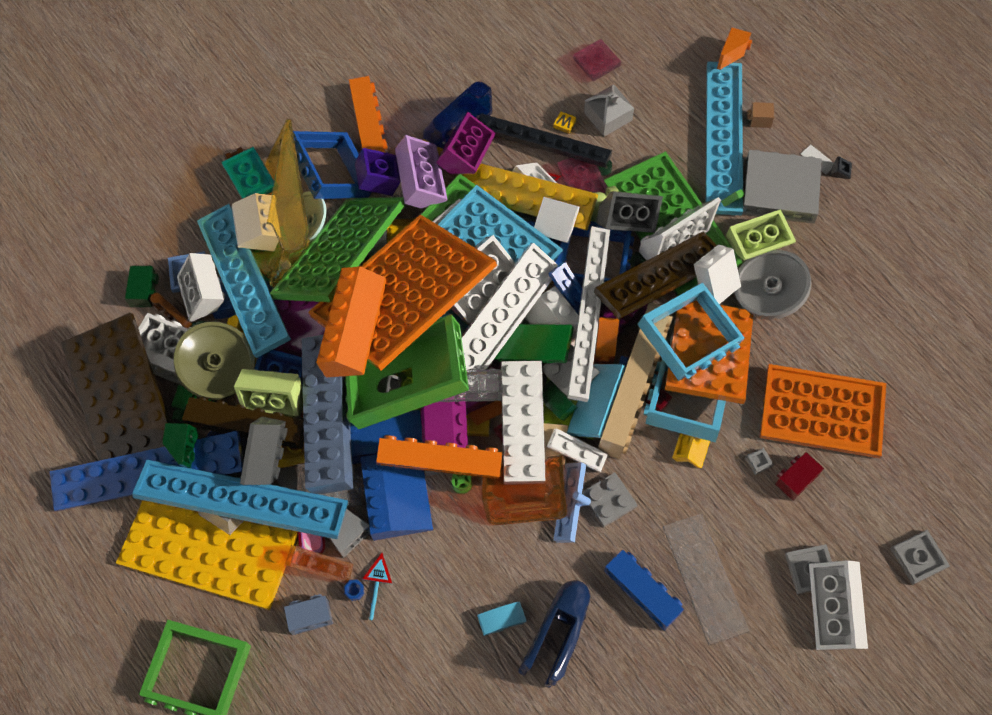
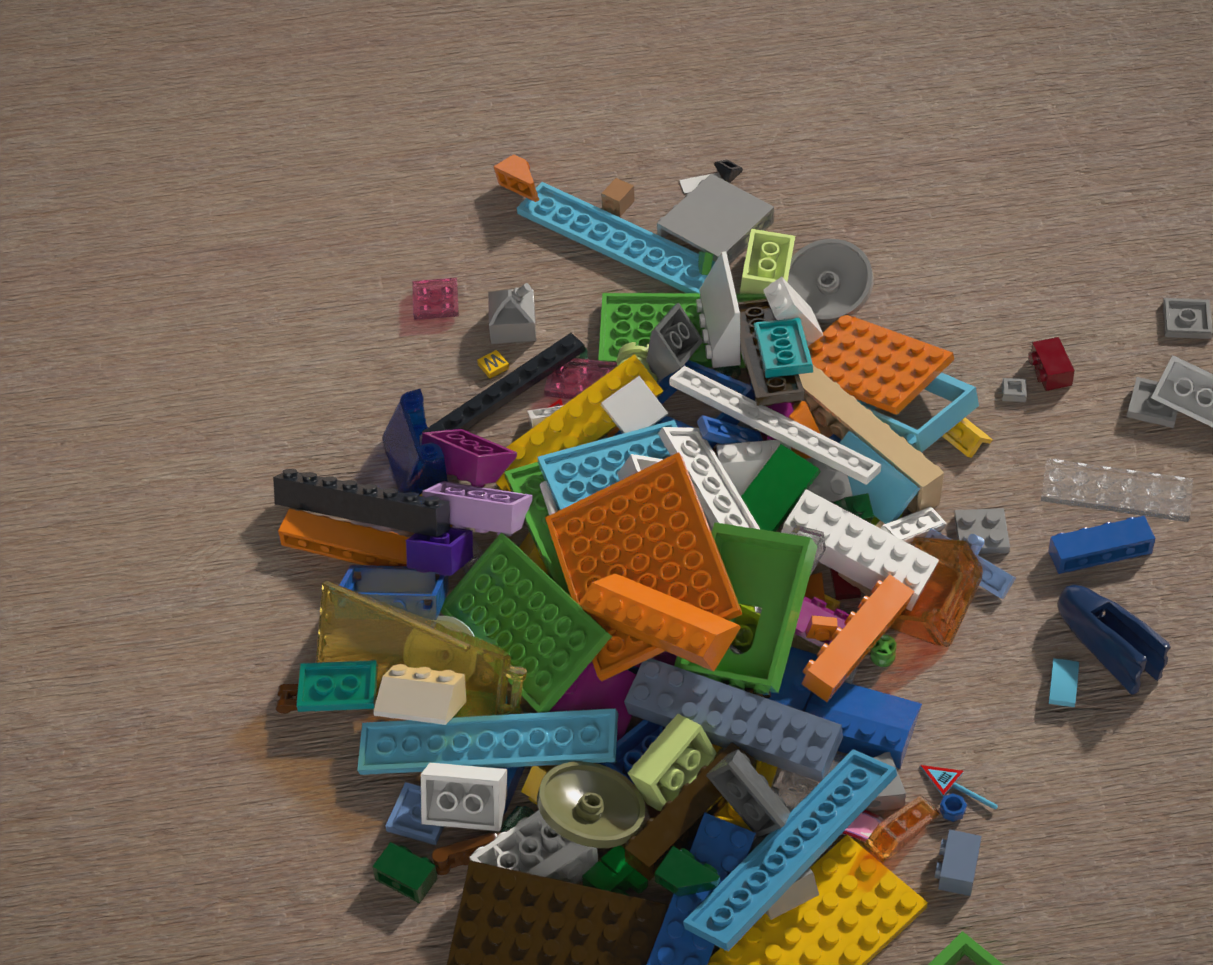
camera: 60 degrees left, 15 degrees down
(388, 111) = (362, 502): none -> black brick
(427, 430) = (821, 628): none -> orange plate
(663, 282) = (783, 347): none -> teal tile
(715, 313) = (853, 330): medium azure window -> none
(823, 411) = (991, 313): orange plate -> none

